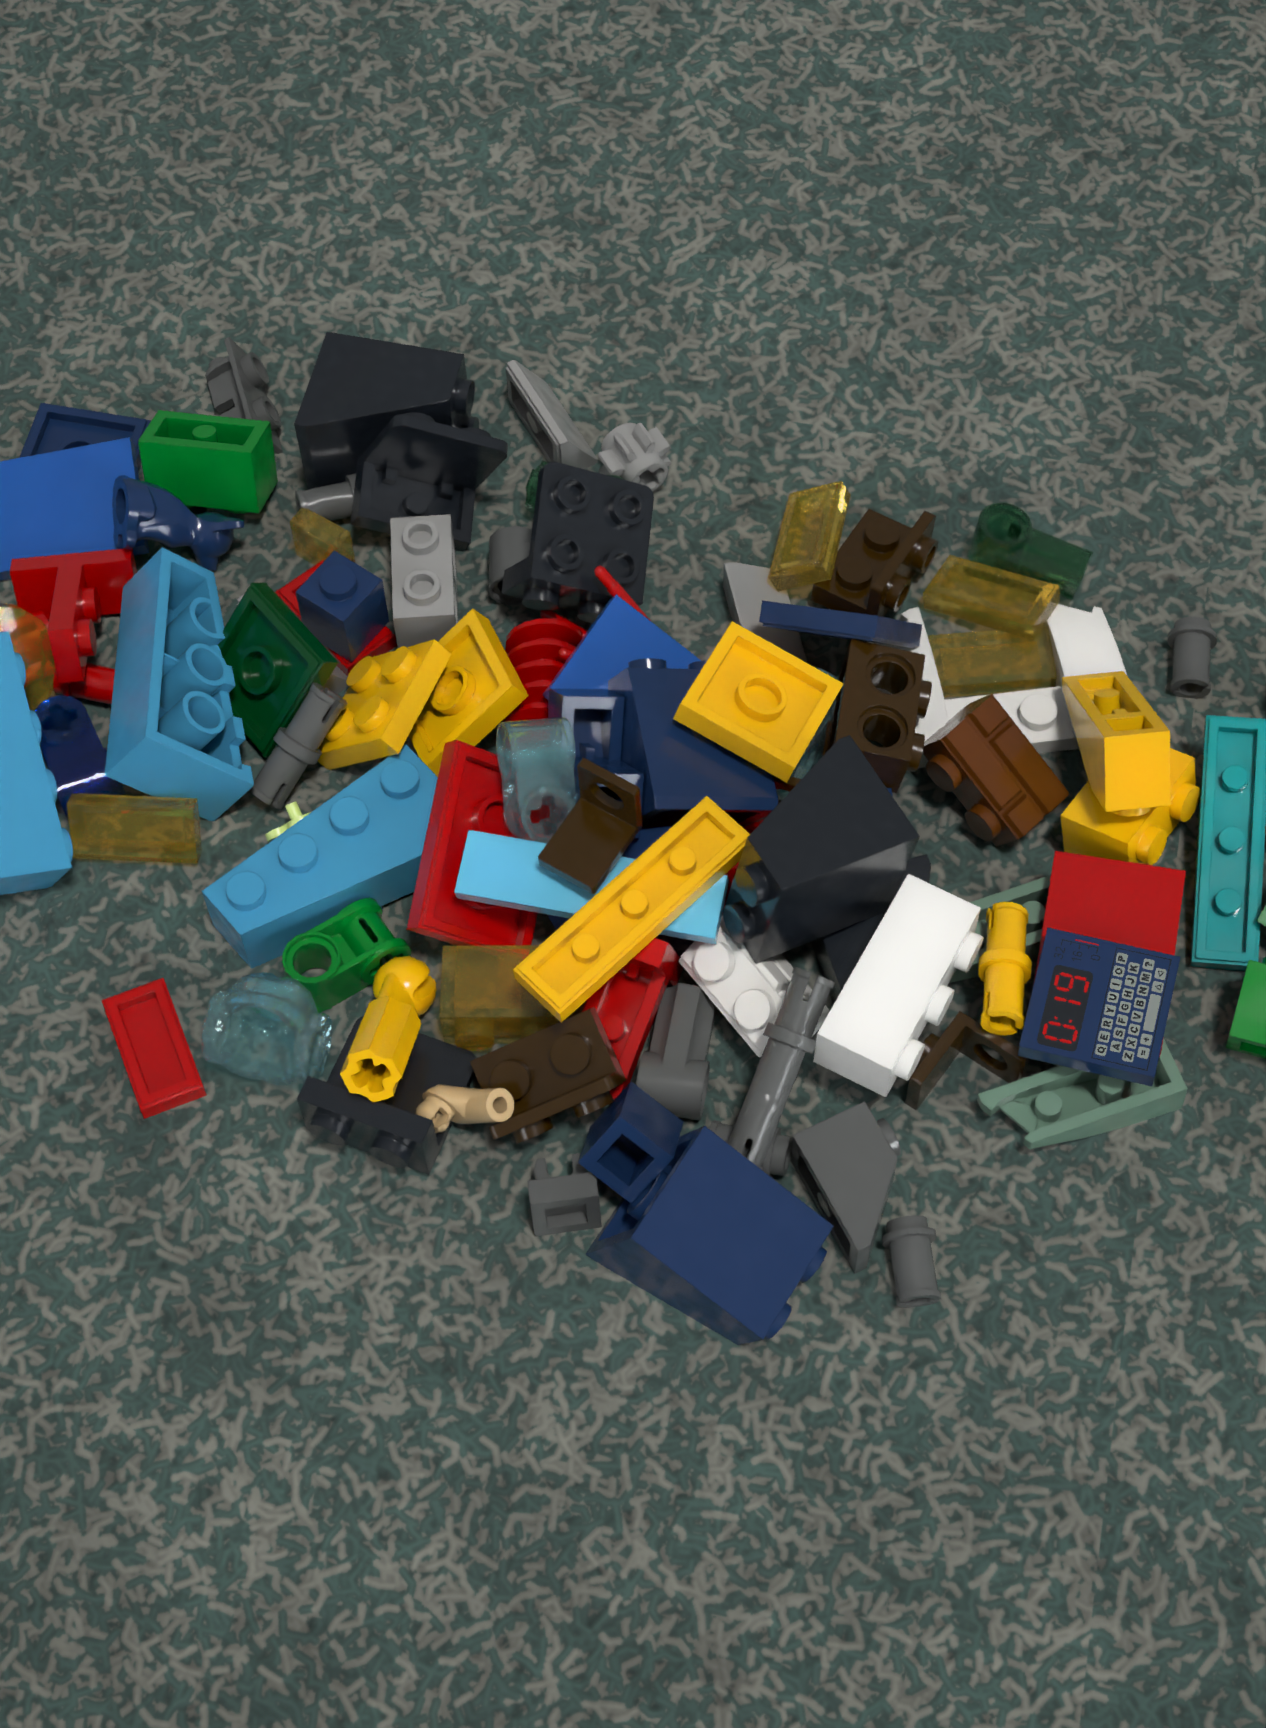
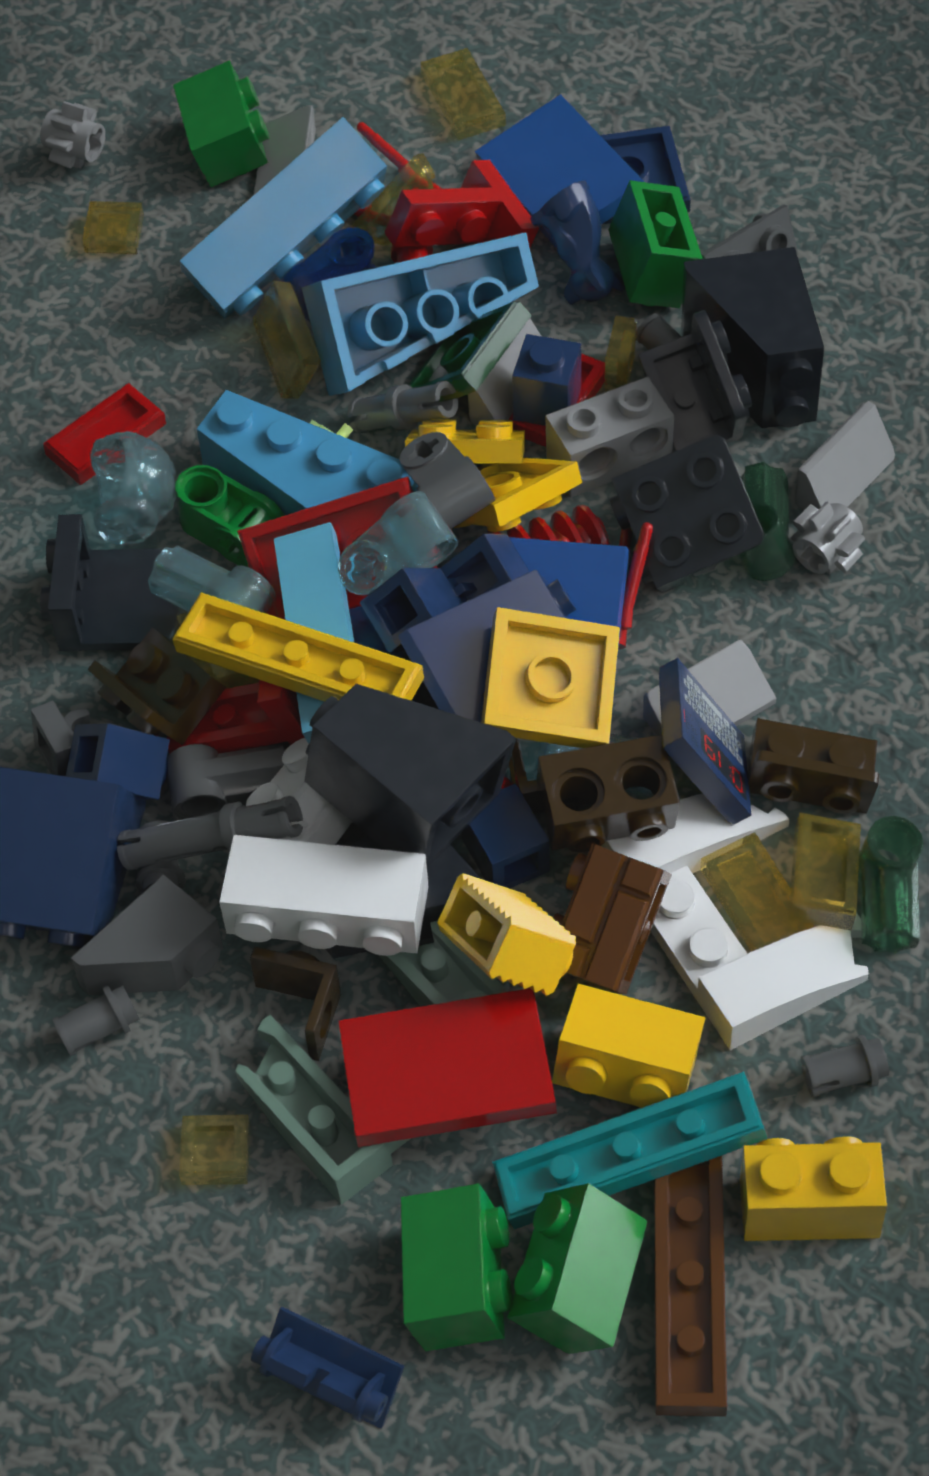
camera: 70 degrees right, 5 degrees down
(389, 1028) = (130, 551): yellow piece -> none
(458, 711) = (446, 477): none -> dark grey piece
(465, 1105) = (113, 631): tan arm -> none
(474, 978) = (182, 576): none -> clear light blue piece
(594, 830) = (346, 598): dark brown bracket -> none
(809, 536) = (814, 699): clear yellow tile -> none
(998, 848) = (507, 934): none -> yellow brick
(1004, 968) = (389, 983): yellow pin -> none
(1092, 1197) = (214, 1149): none -> clear yellow tile
(1099, 1006) = (371, 1066): tile -> none
(1119, 742) = (663, 991): yellow slope -> none

